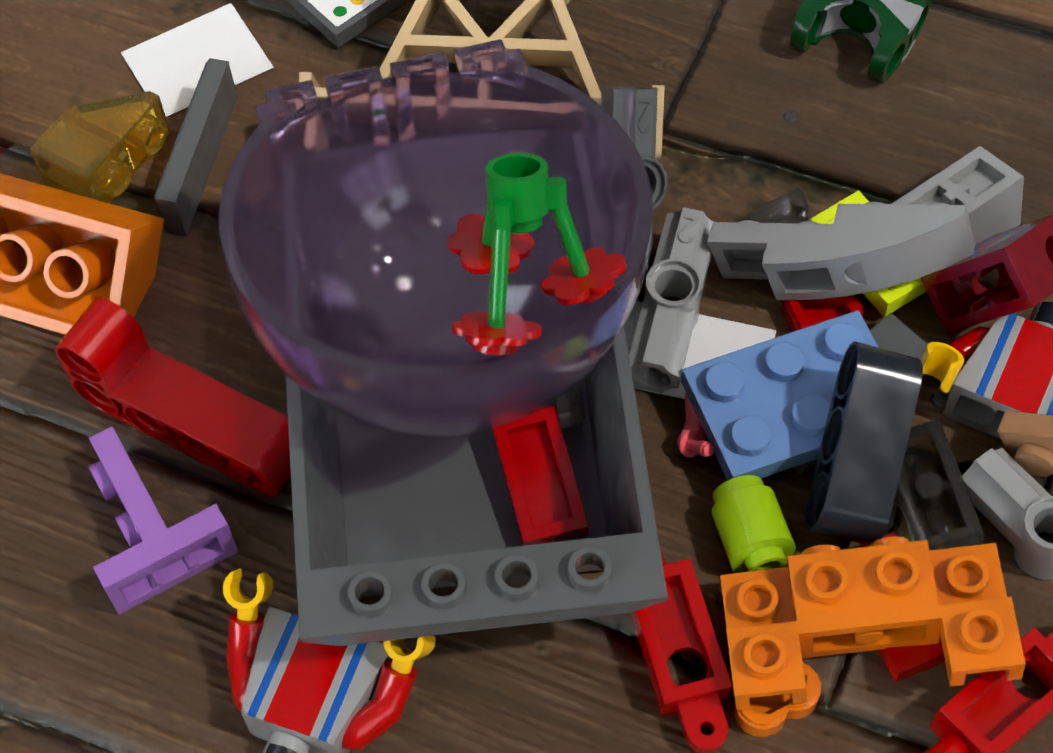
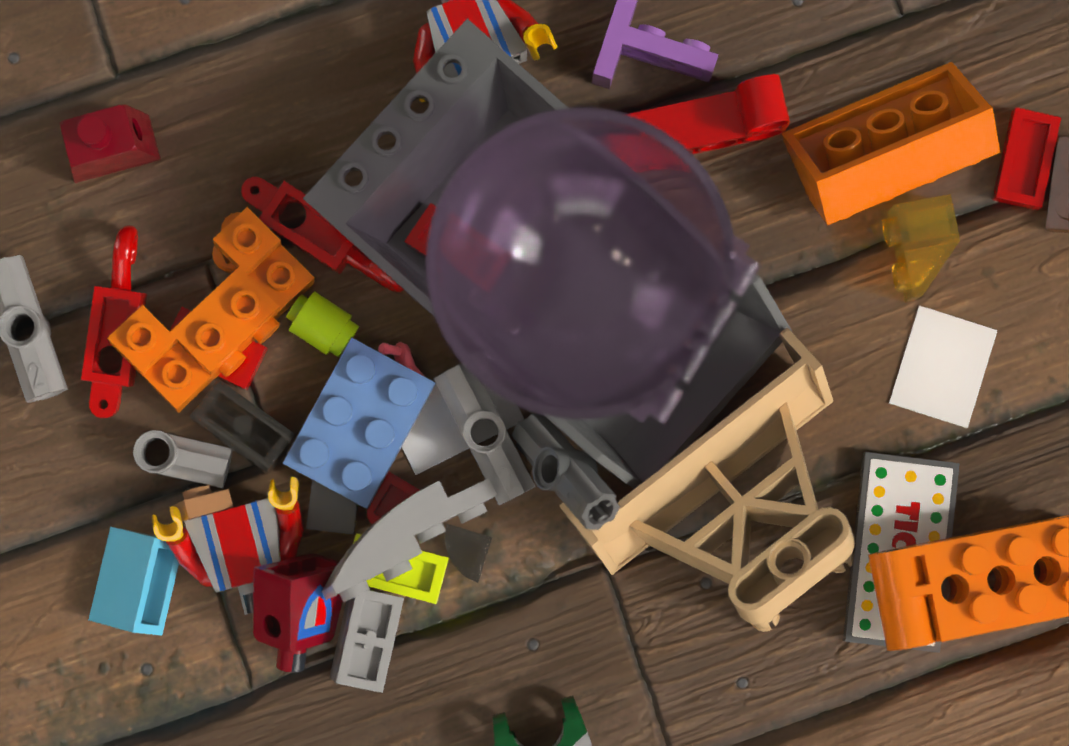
camera: 135 degrees right, 25 degrees up
(196, 147) = (865, 294): dark grey tile -> none
(494, 244) = (500, 253): plant -> none
(864, 444) = (290, 409): black beam -> none

